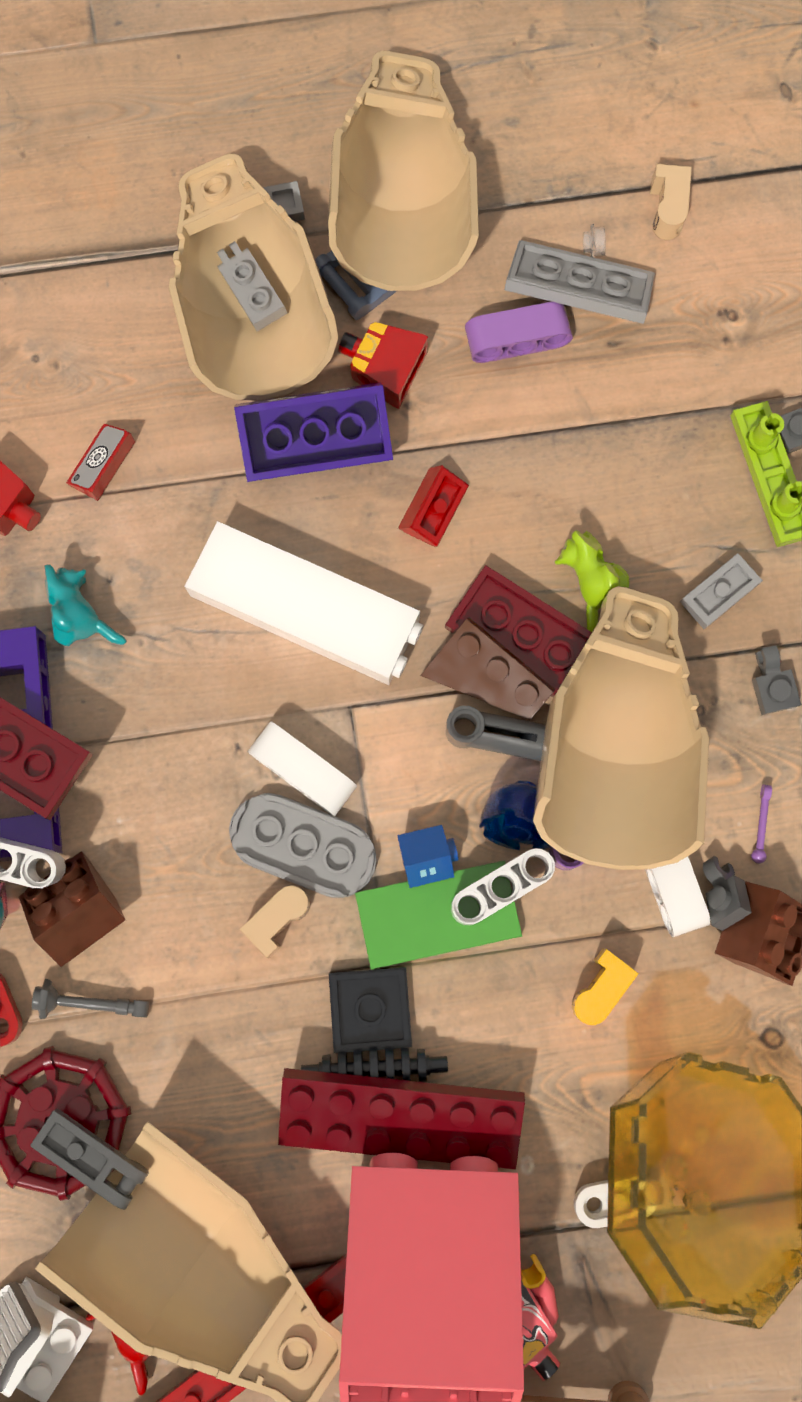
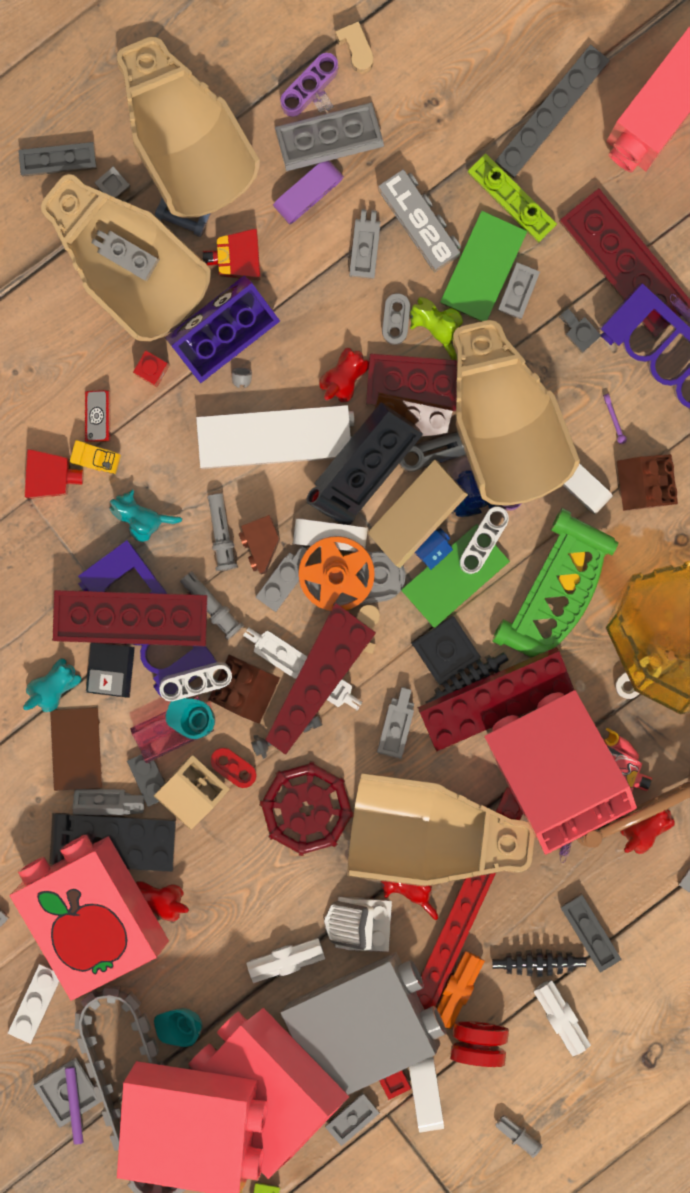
camera: 30 degrees left, 10 degrees up
(62, 505) = (94, 457): none -> yellow leg
(88, 1158) = (337, 814): dark grey plate -> none
(99, 790) = (219, 614): none -> light grey pin
(155, 708) = (223, 545): none -> light grey pin
(164, 926) = (292, 661): none -> white plate
(196, 937) = (328, 662): none -> dark red wing
(198, 436) = (151, 369): none -> red brick
(206, 724) = (262, 541): none -> copper slope
(210, 793) = (282, 581): none -> light grey hinge
(225, 136) = (57, 159): none -> dark grey plate
(244, 1076) = (396, 725): none -> light grey hinge
(280, 822) = (336, 573): none -> orange wheel
(306, 508) = (241, 376): none -> light grey hinge
(414, 693) = (363, 464): none -> black hinge
(433, 505) = (316, 331): red slope -> none
(433, 801) = (417, 513): none -> tan tile
(434, 576) = (342, 378): none -> red animal
(541, 543) = (396, 319): none -> light grey plate
(552, 434) = (365, 246): none -> light grey hinge
(601, 200) = (313, 73): none -> medium lavender beam
(628, 951) = (573, 538): none -> bright green piece
(639, 438) = (419, 221): none -> light grey brick
(690, 538) = (483, 267): none -> bright green tile
(728, 898) = (614, 476): dark grey plate -> none

